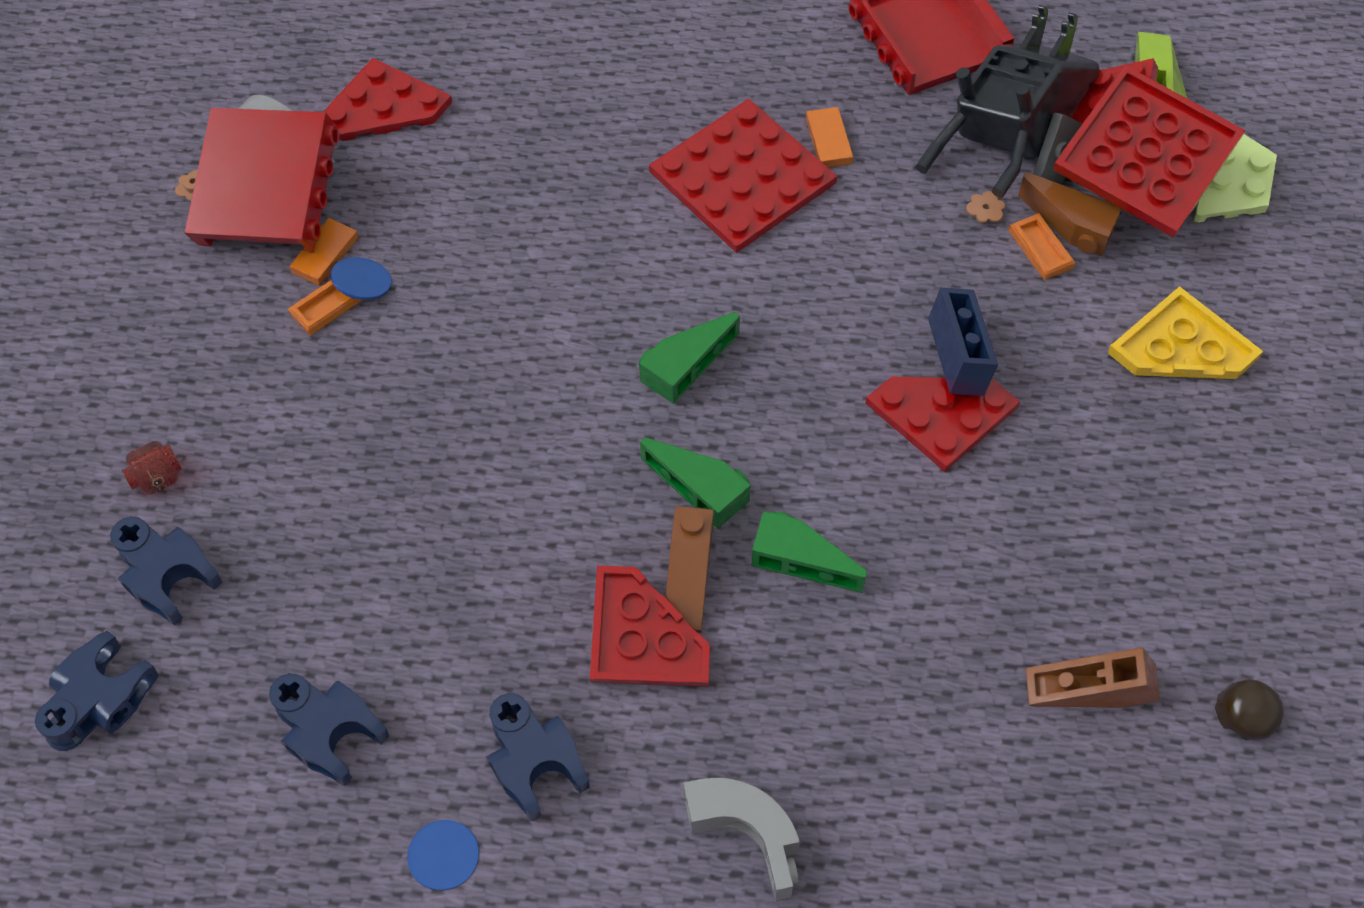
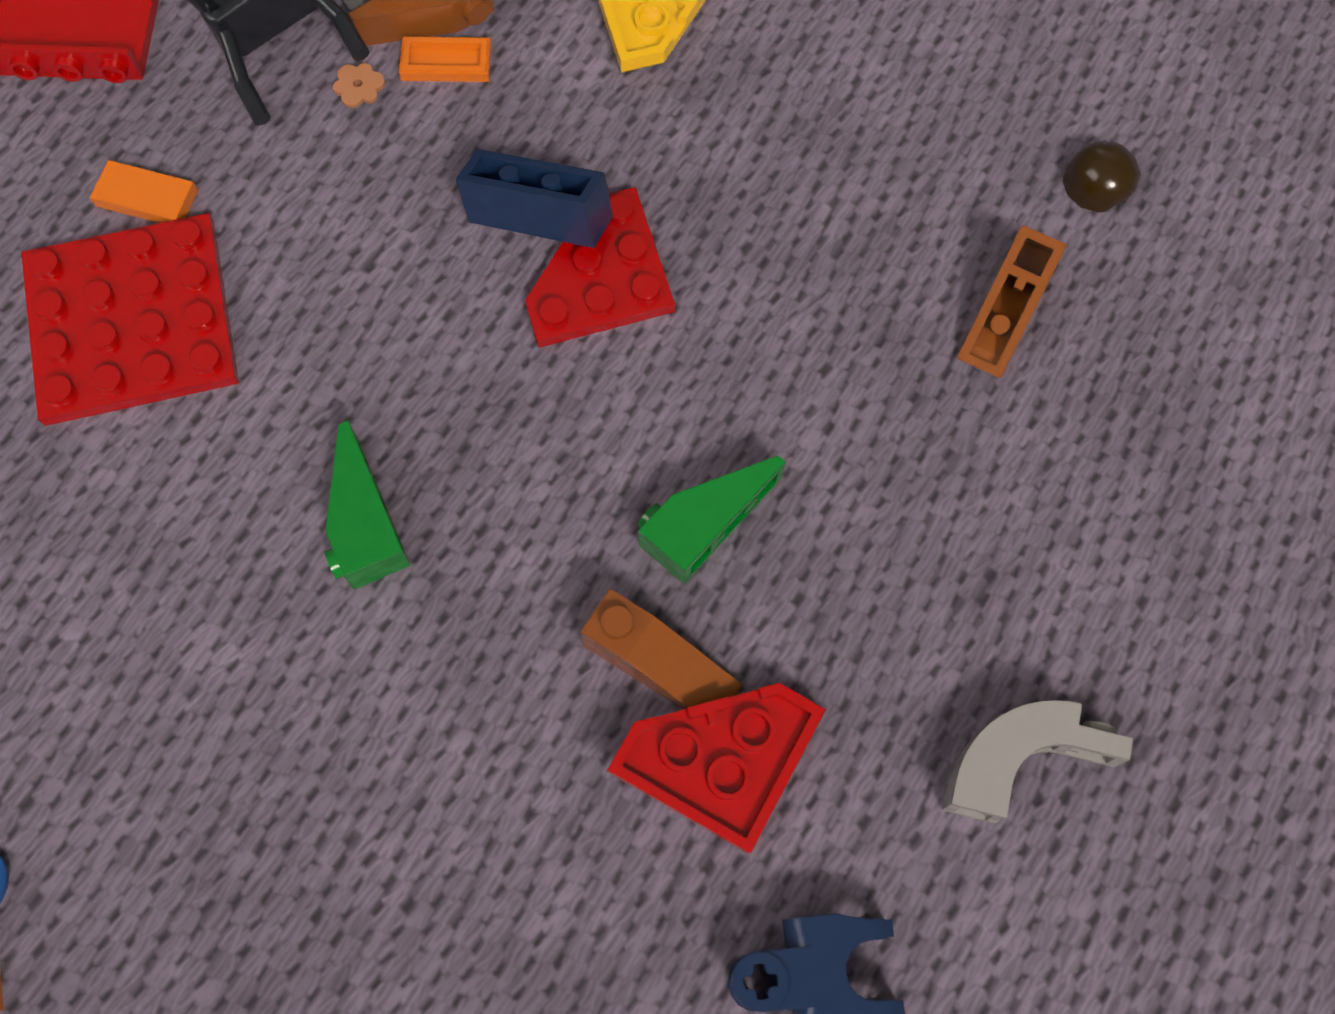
camera: 65 degrees left, 10 degrees up
(699, 479) = (550, 582): green slope -> none

